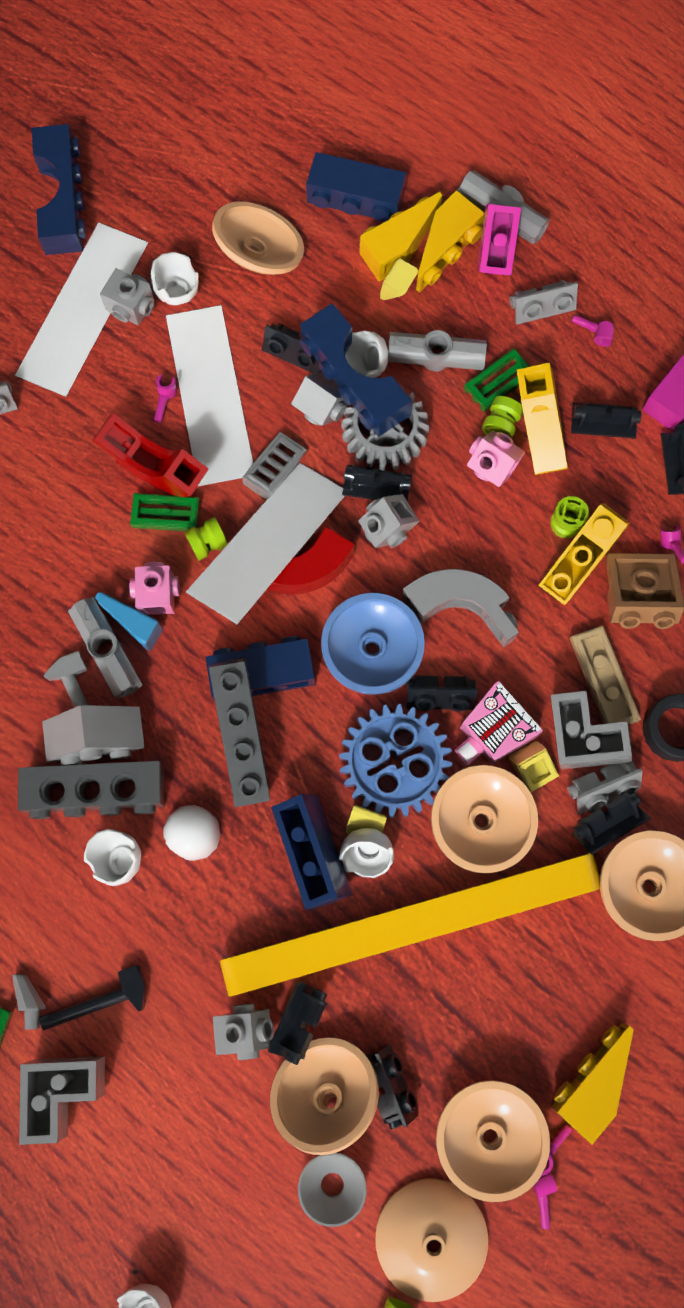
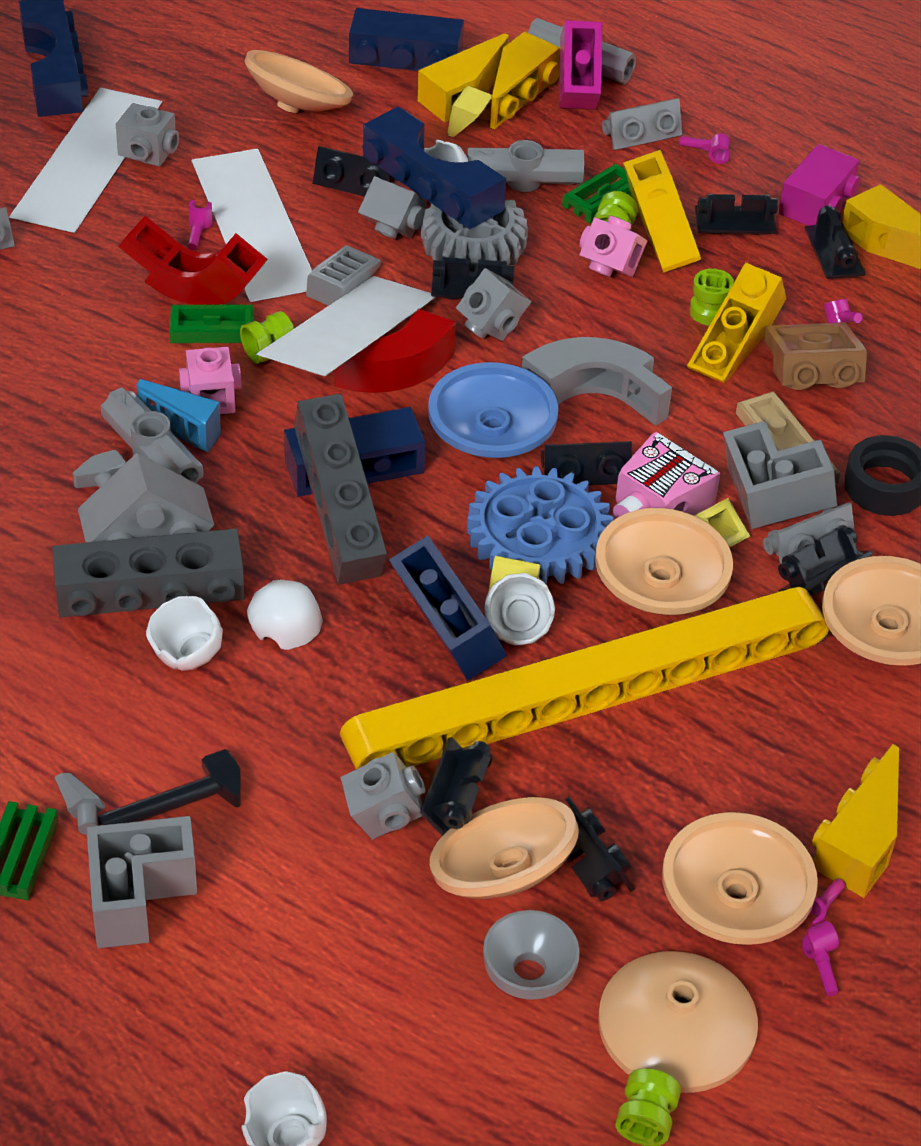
camera: 10 degrees left, 30 degrees down
(174, 278) = (201, 119): white hair -> none

